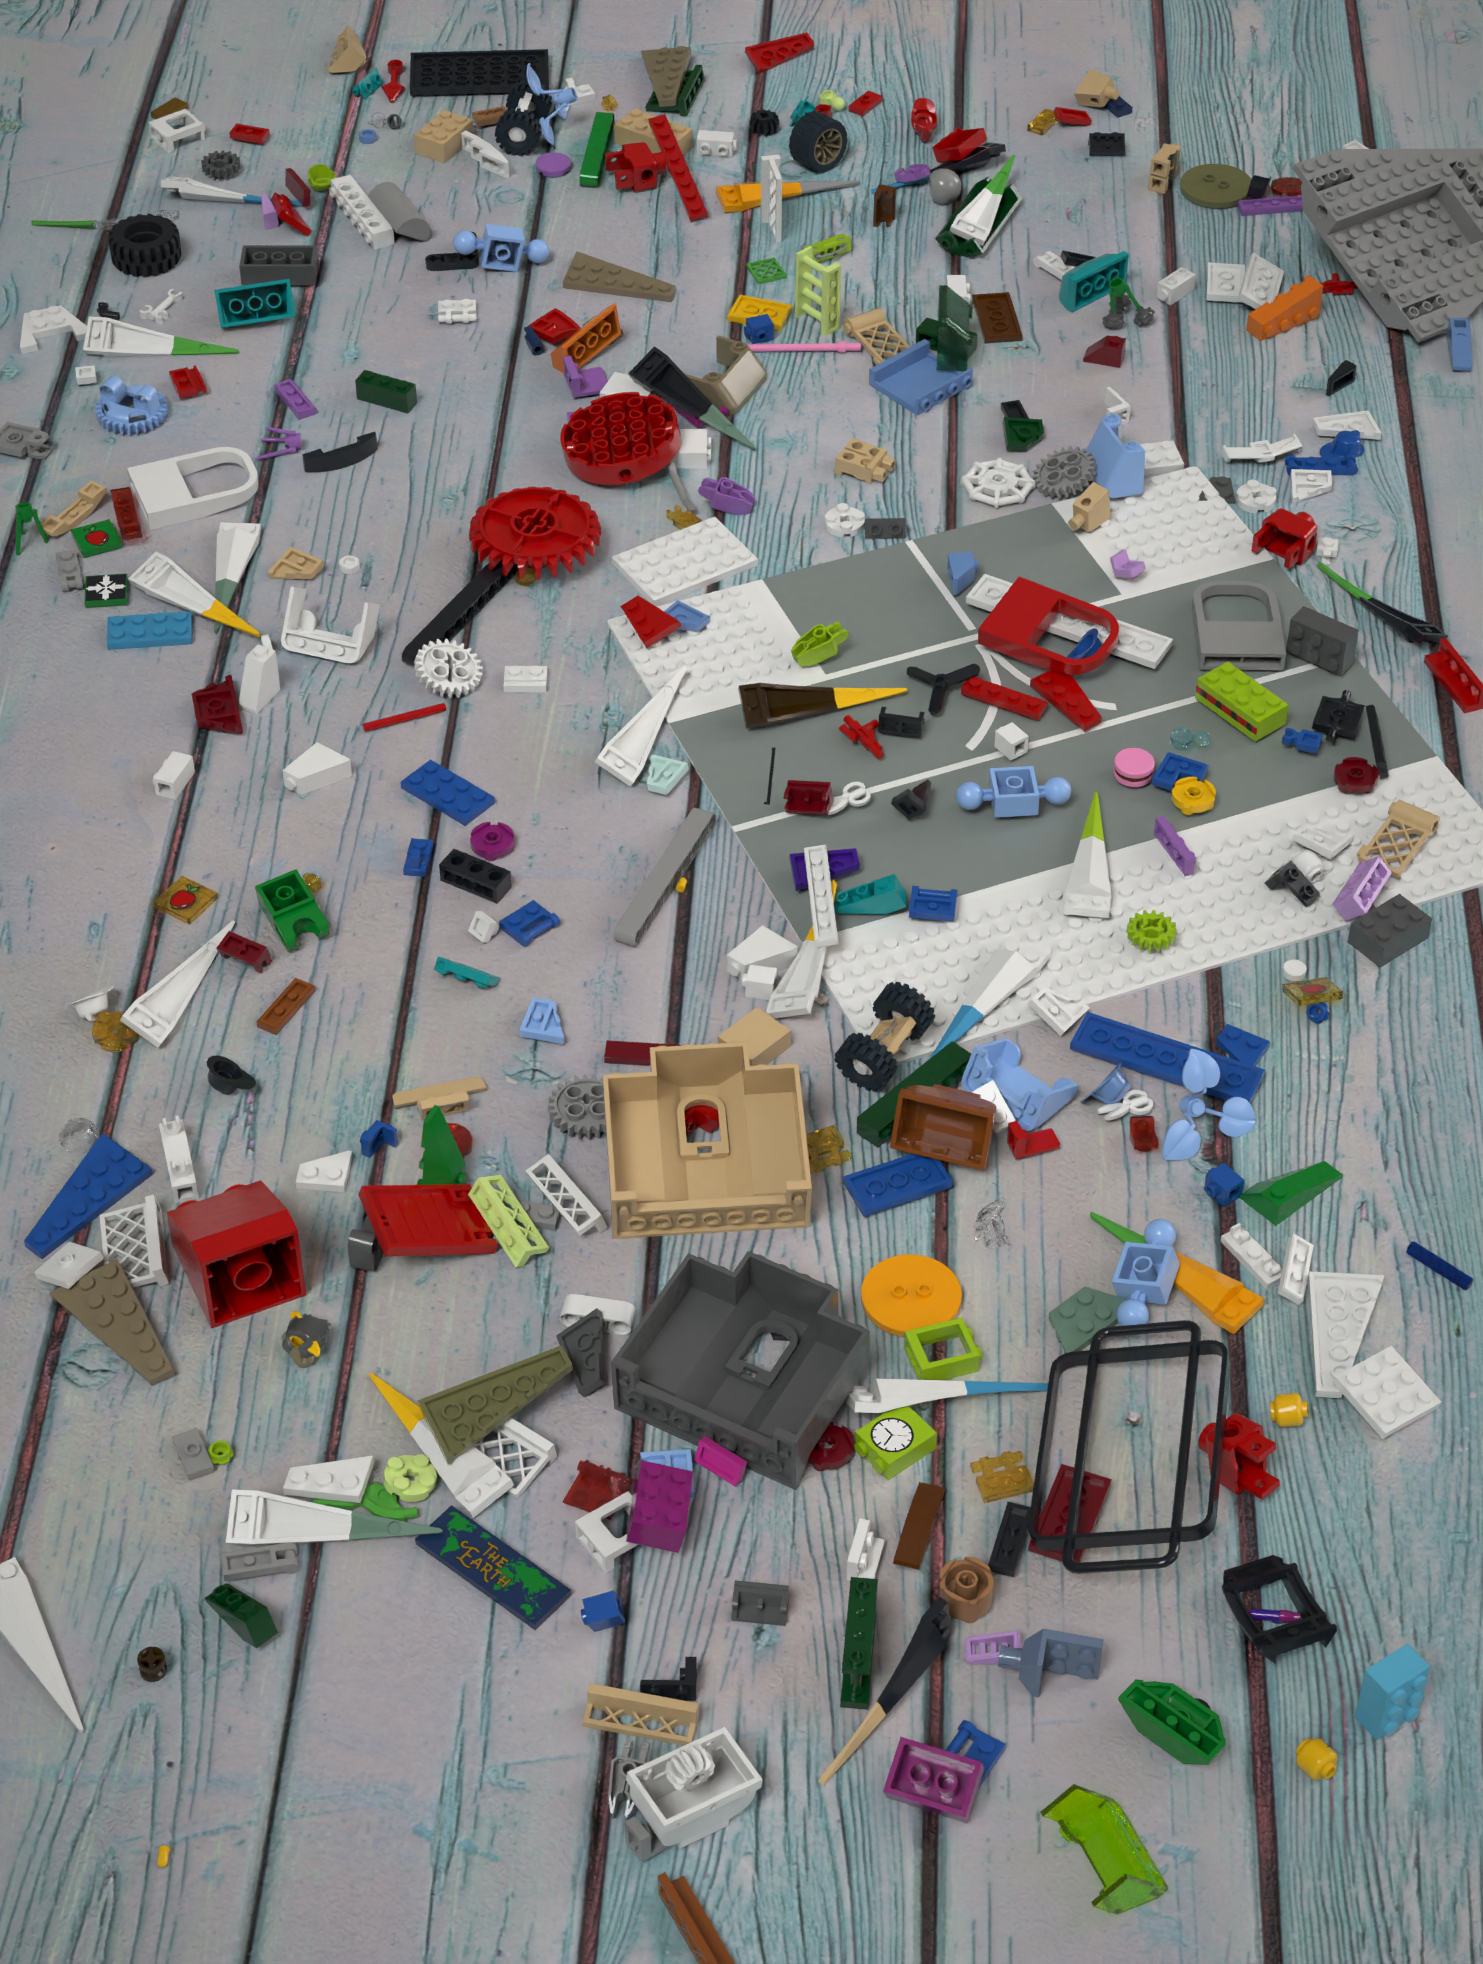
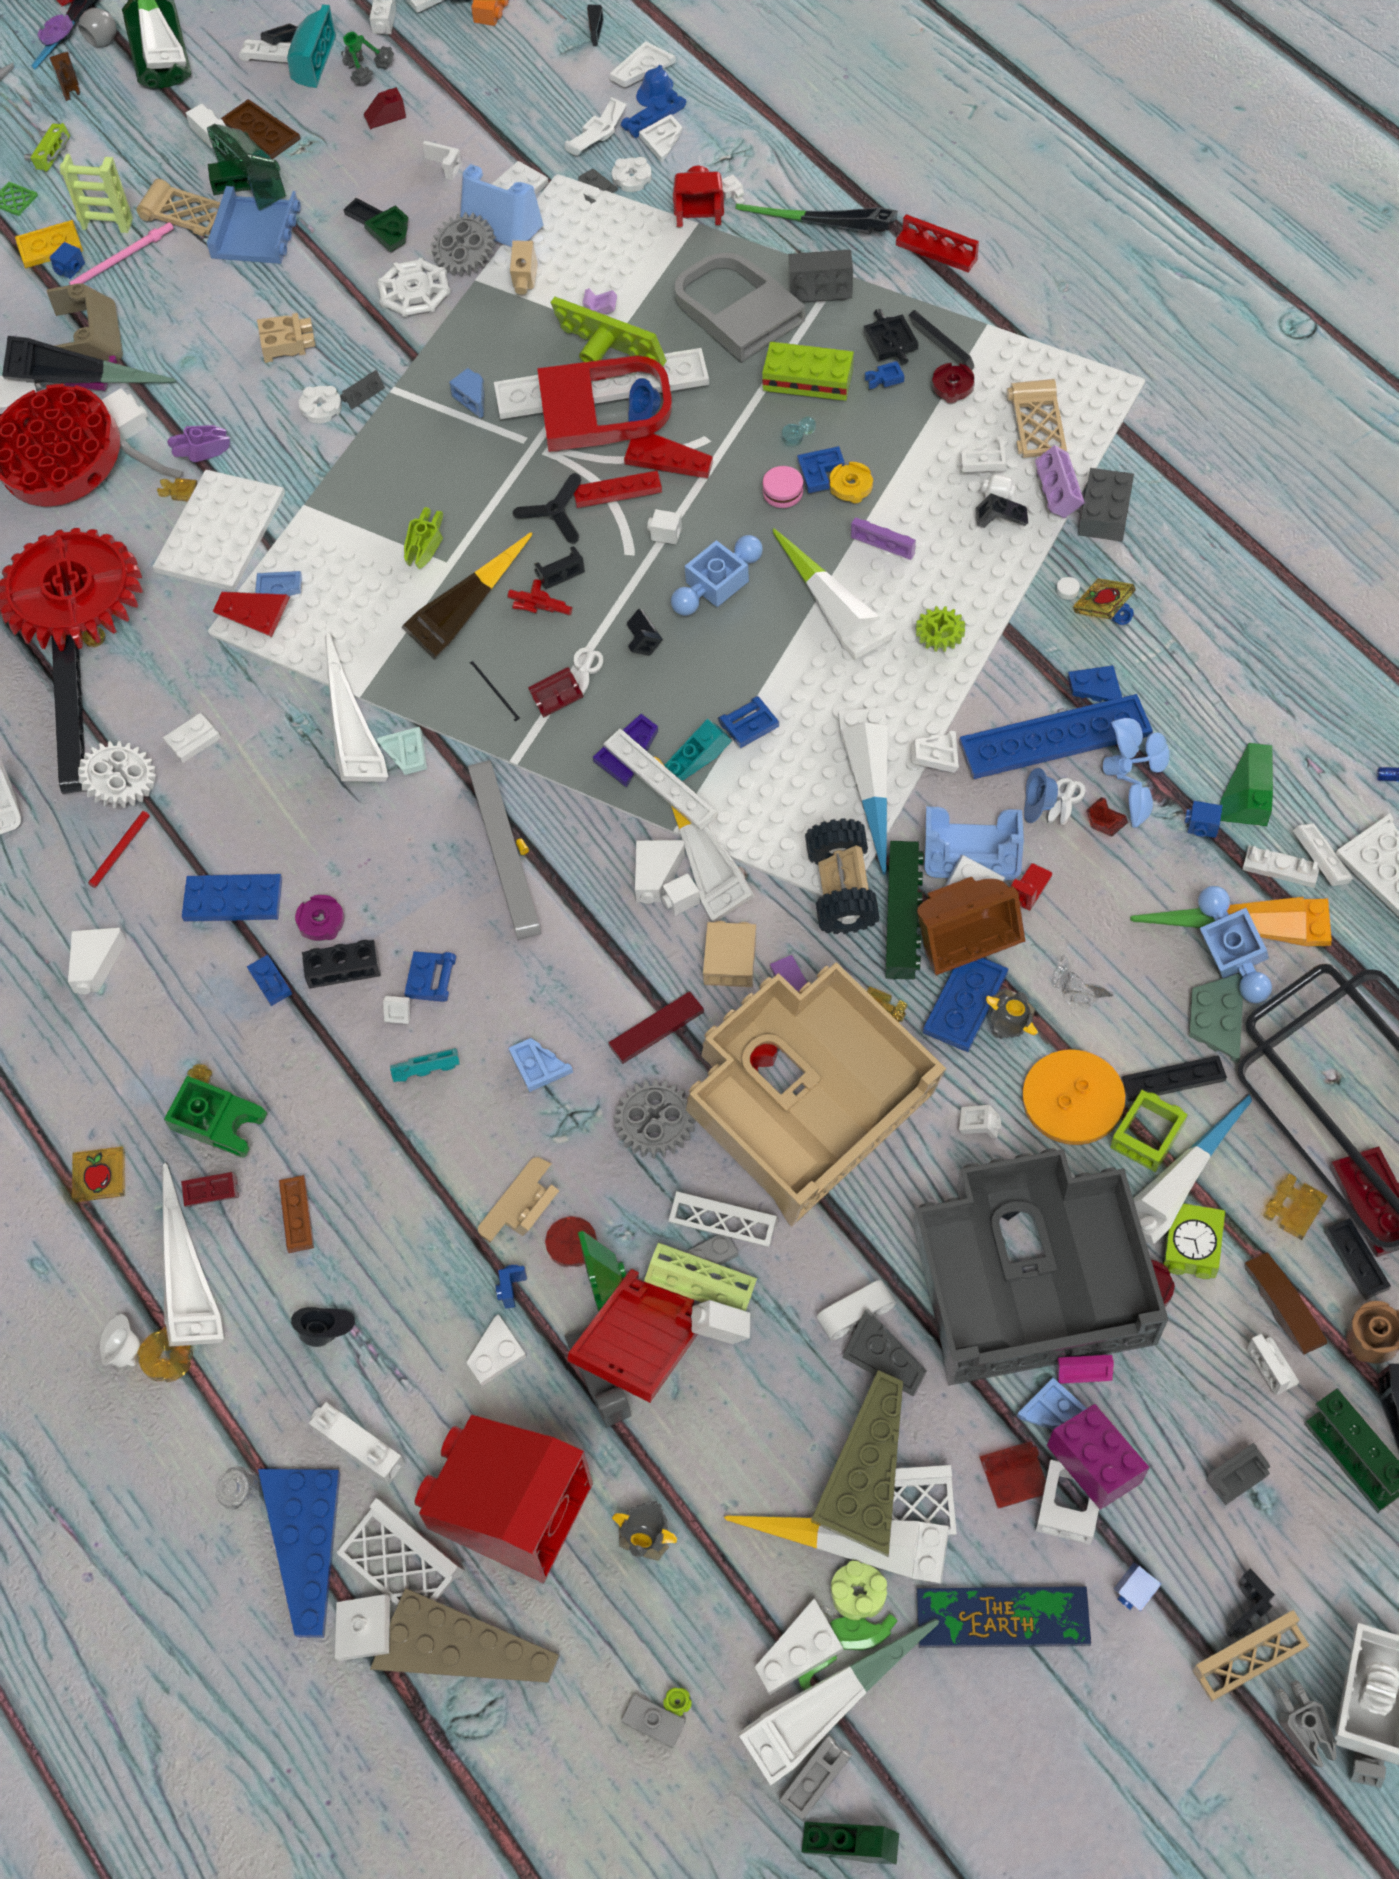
camera: 35 degrees left, 15 degrees up
(490, 1250) = (720, 1322): none -> white brick
(823, 1261) = (979, 1120): none -> white bracket
(919, 1209) = (1011, 1014): none -> dark grey hair
(1007, 1336) = (1175, 1078): none -> black tile
(1100, 584) = (605, 333): none -> lime plate

